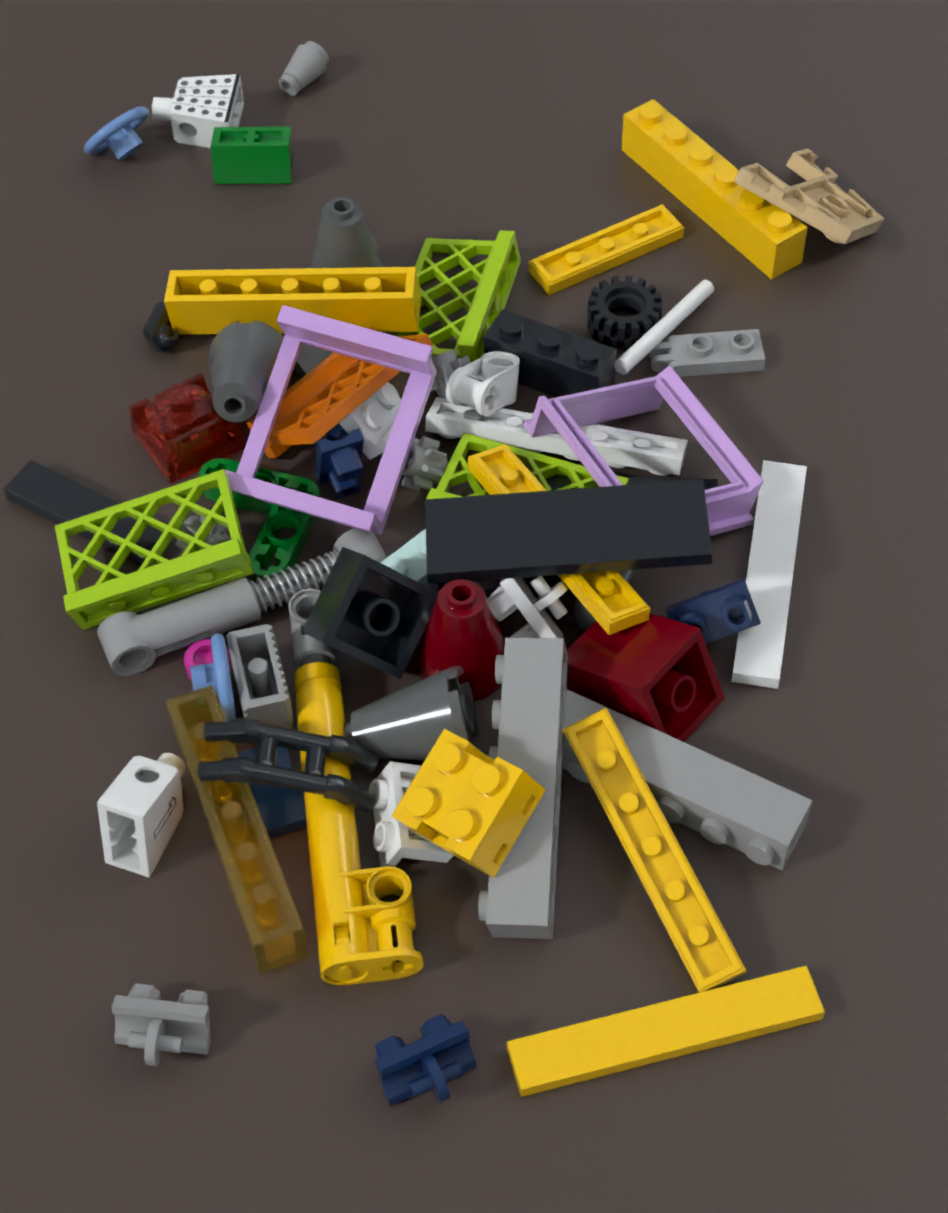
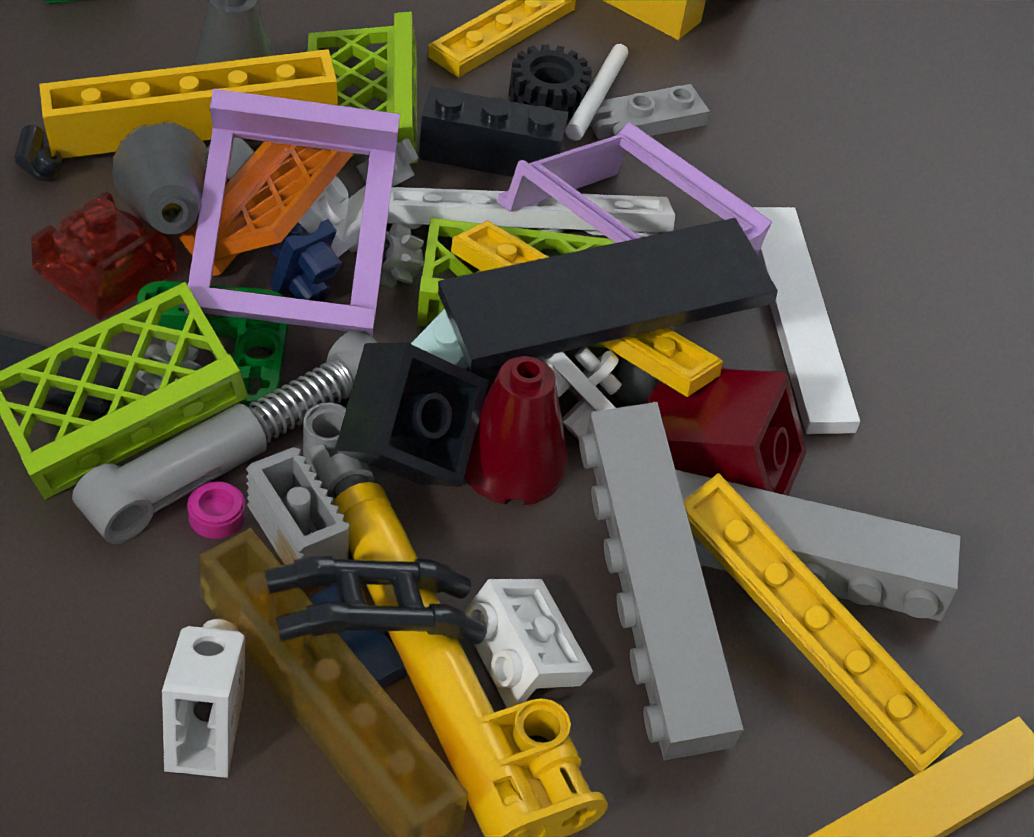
camera: 25 degrees left, 5 degrees down
(217, 675) = (248, 509): medium blue piece -> none
(413, 718) = (505, 528): dark grey cone -> none
(469, 803) = (616, 604): yellow piece -> none
(485, 383) = (437, 163): white piece -> none
(718, 611) = (782, 351): dark blue hips -> none

